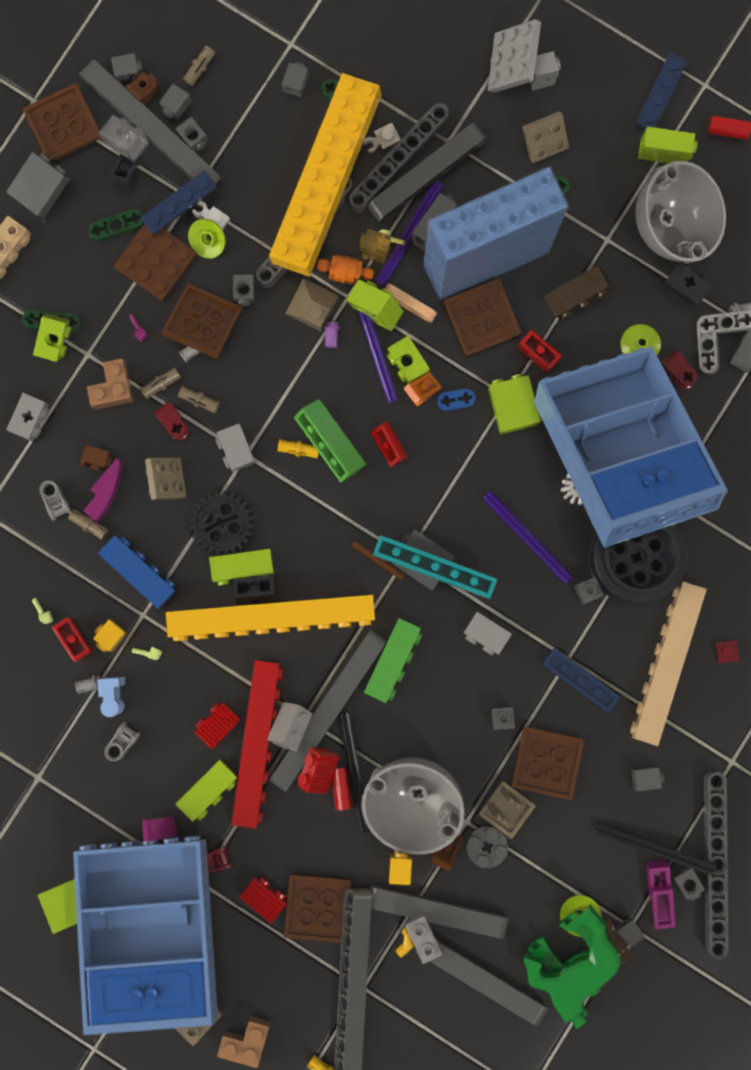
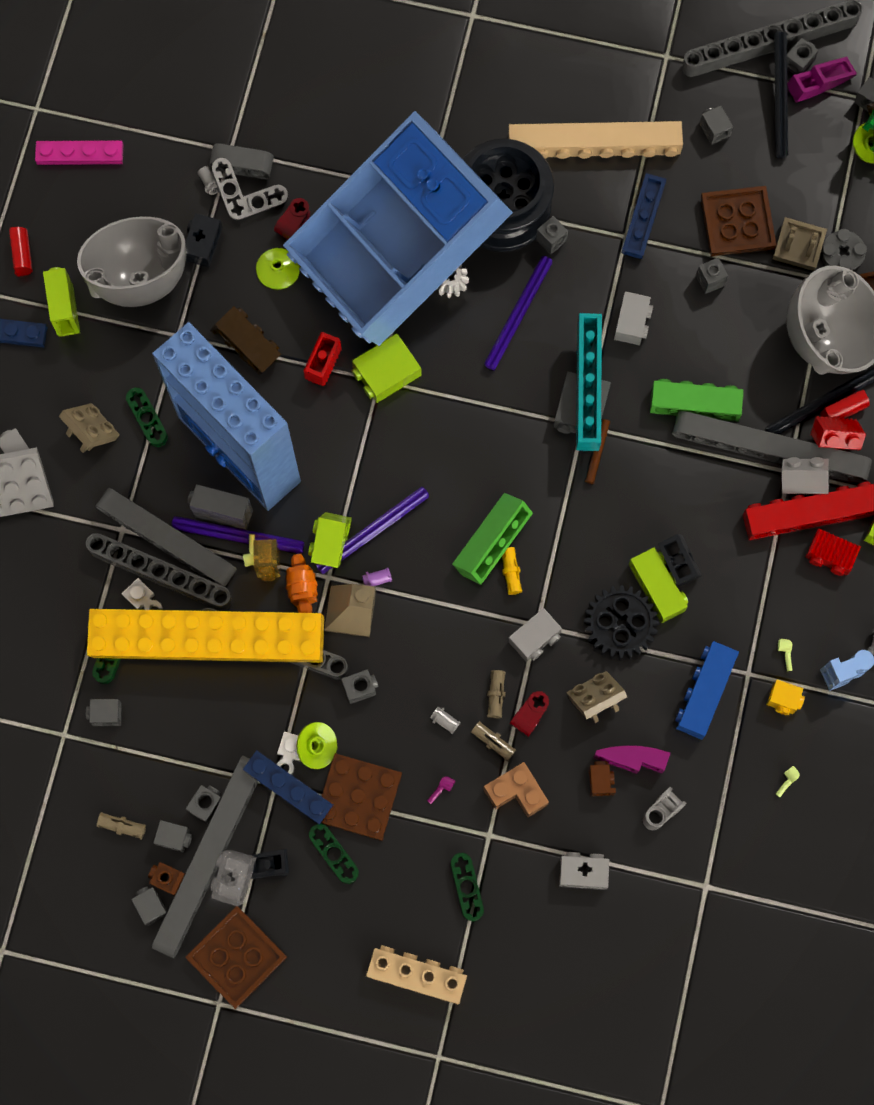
camera: 110 degrees left, 10 degrees down
(38, 184) = (317, 954): dark grey brick -> none
(44, 345) = (474, 877): lime brick -> none
(72, 639) = (805, 732): red brick -> none
(87, 684) = (844, 701): light grey pin -> none
(88, 524) = (675, 763): dark tan pin -> none
(202, 321) = (410, 717): reddish brown plate -> none
(270, 616) = (703, 536): yellow brick -> none
(389, 444) = (473, 479): red brick -> none
(406, 349) = (382, 477): lime brick -> none
(412, 304) = (315, 507): light nougat beam -> none
(422, 388) = (403, 464): orange slope -> none
(457, 405) = (405, 426): blue beam -> none
(482, 317) = (312, 428): reddish brown plate -> none
(727, 651) = (561, 92): dark red plate -> none

